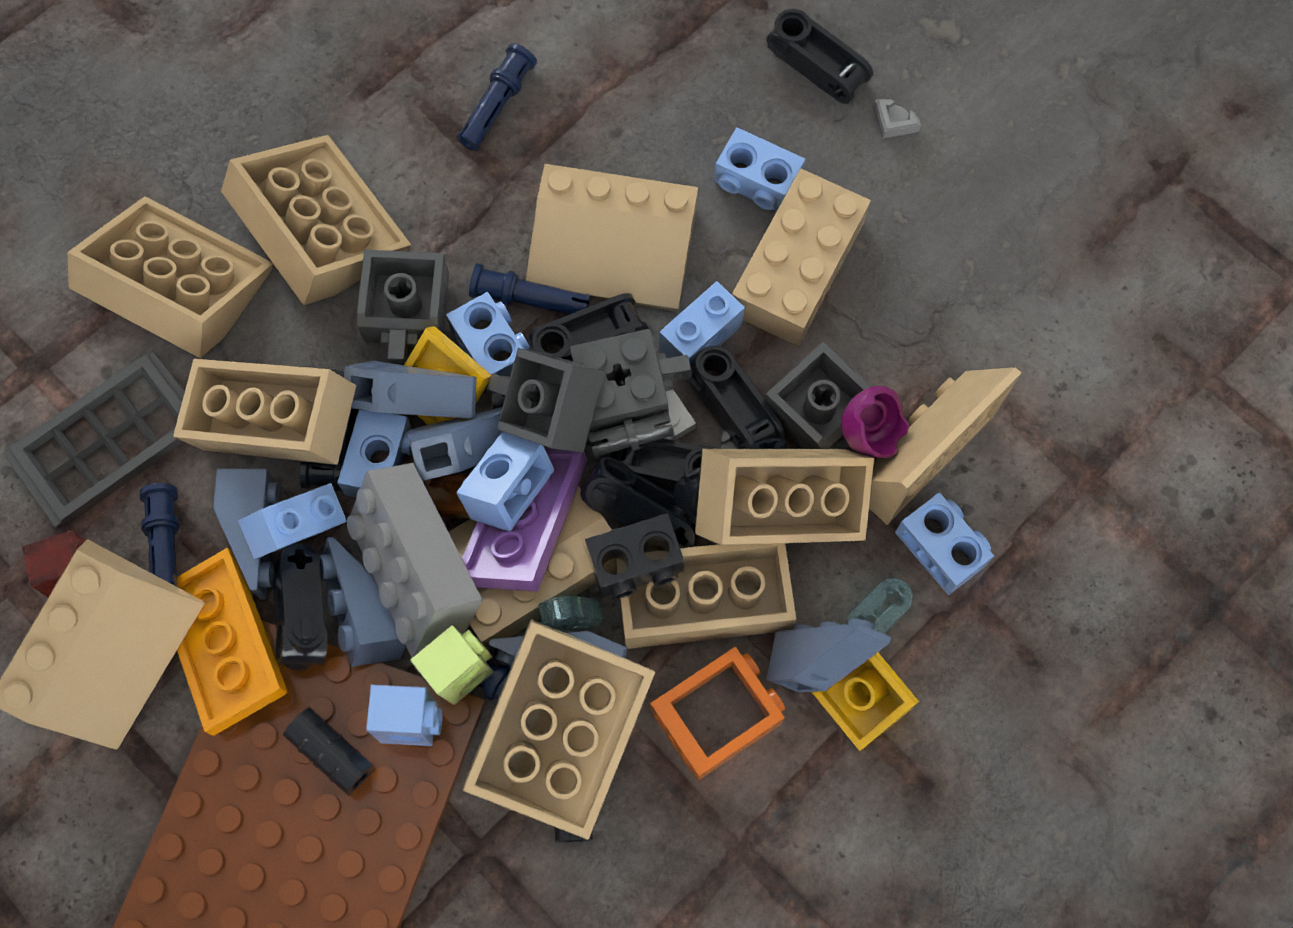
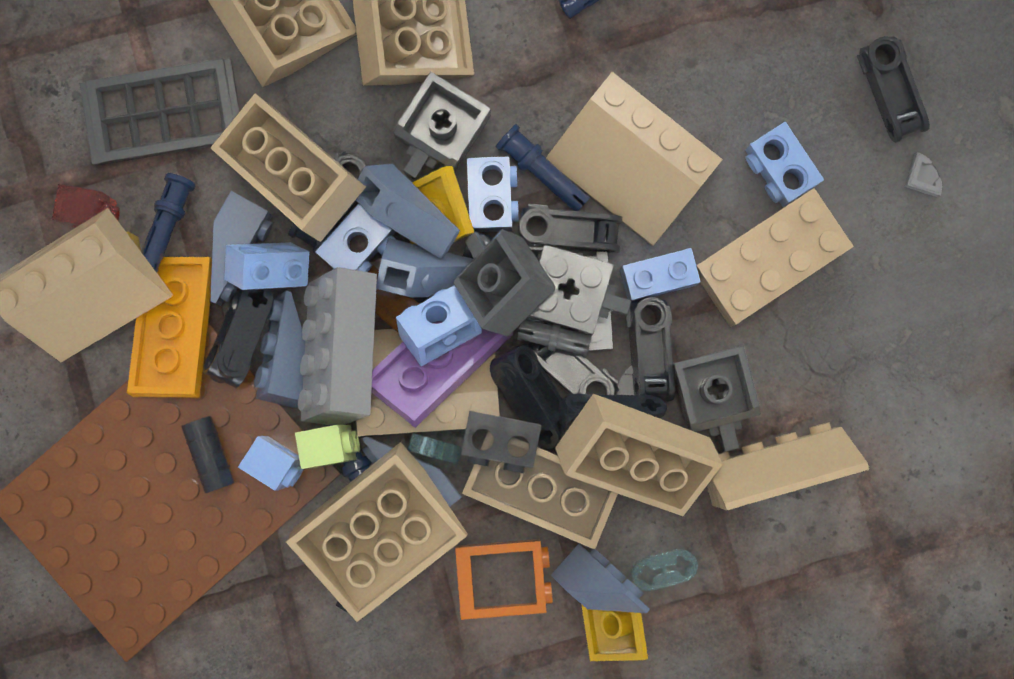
camera: 25 degrees right, 15 degrees up
(874, 422) = (741, 436): magenta hair -> none
(935, 549) = (735, 550): light blue brick -> none

